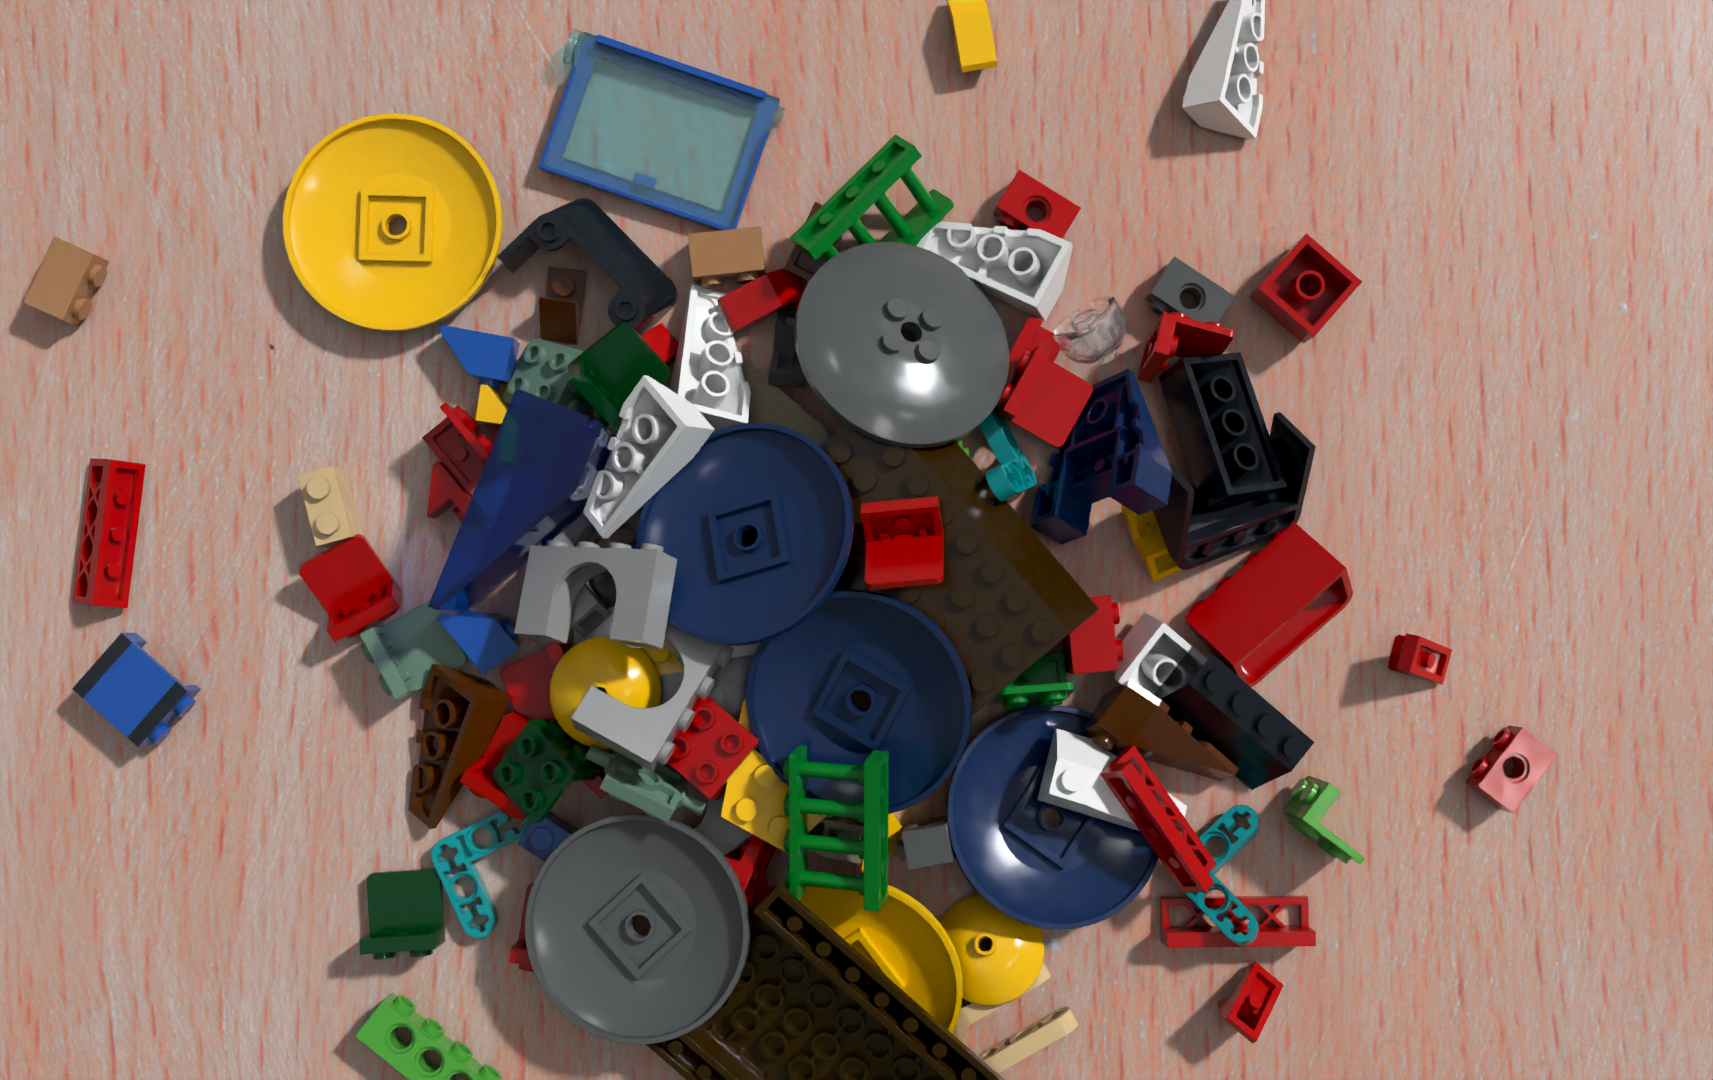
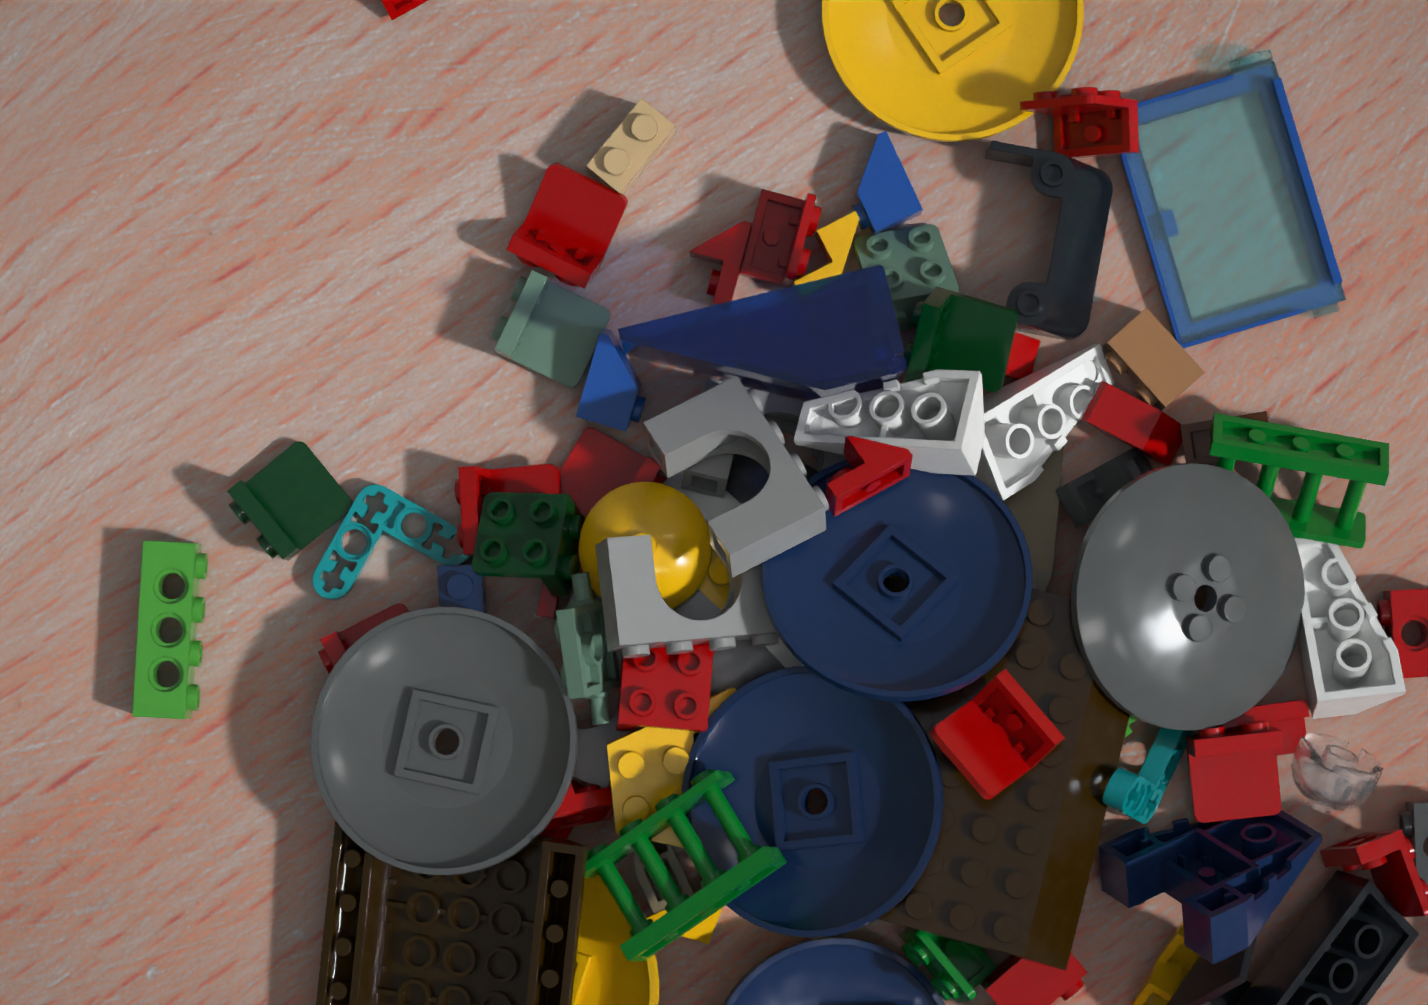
camera: 55 degrees right, 0 degrees up
(135, 691) = (320, 89): blue panel -> none
(456, 730) = (501, 426): reddish brown wedge -> none
(531, 182) = (1089, 121): none -> red bracket
(562, 305) = (988, 231): reddish brown slope -> none
(659, 496) = (874, 470): none -> red slope
(925, 843) = (718, 963): dark grey brick -> none

